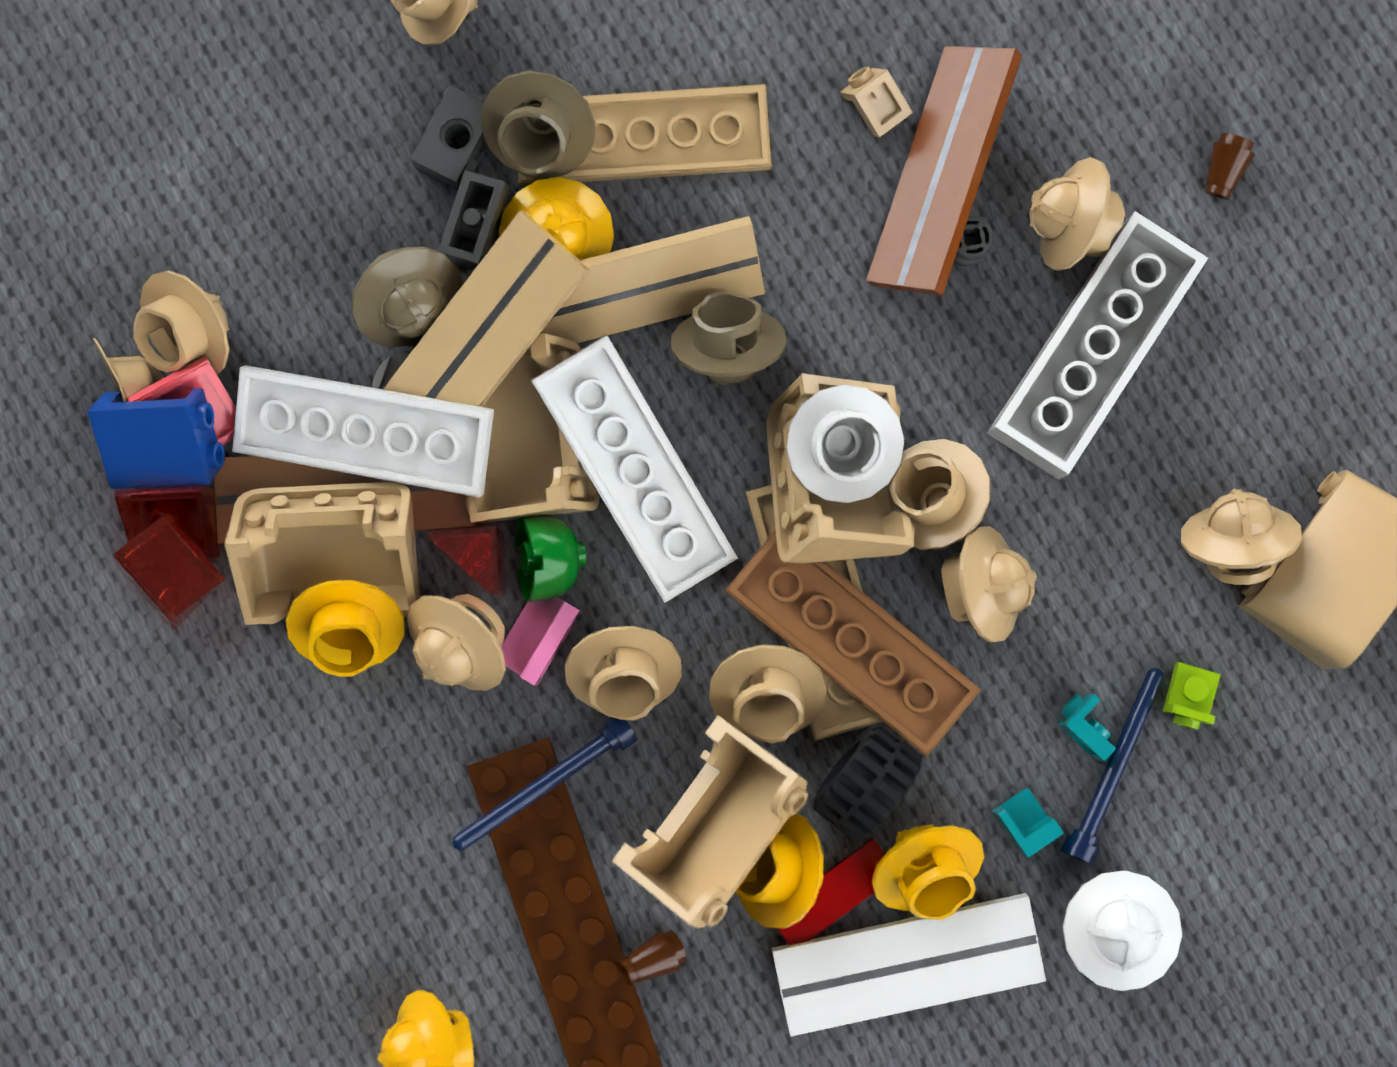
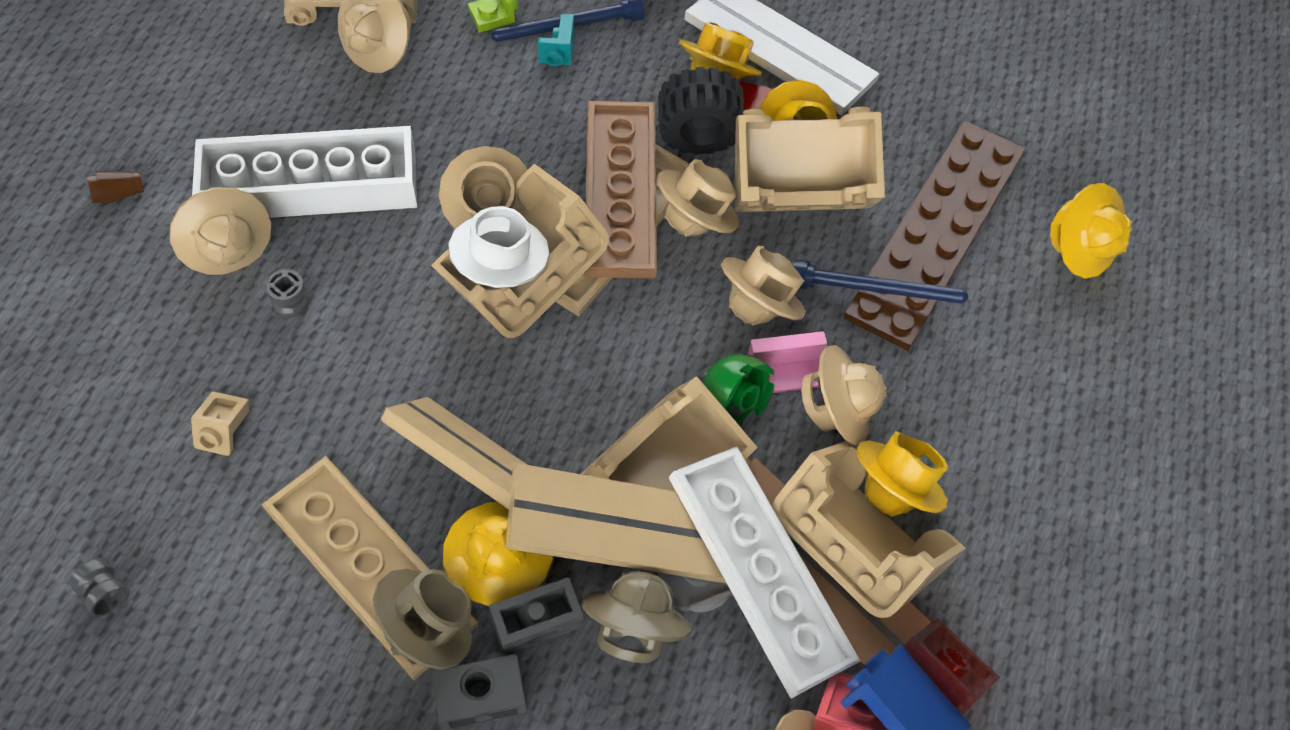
camera: 130 degrees left, 25 degrees down
(168, 570) = (985, 628): clear red slope -> none
(478, 553) = (773, 427): clear red slope -> none
(634, 468) = (623, 379): white tile -> none
(653, 958) = (911, 162): reddish brown cone -> none
(728, 339) = (485, 379): dark tan helmet -> none
(944, 169) = (241, 338): tile -> none
(987, 584) = (519, 126): tan helmet -> none
(1027, 823) = (645, 37): teal panel -> none

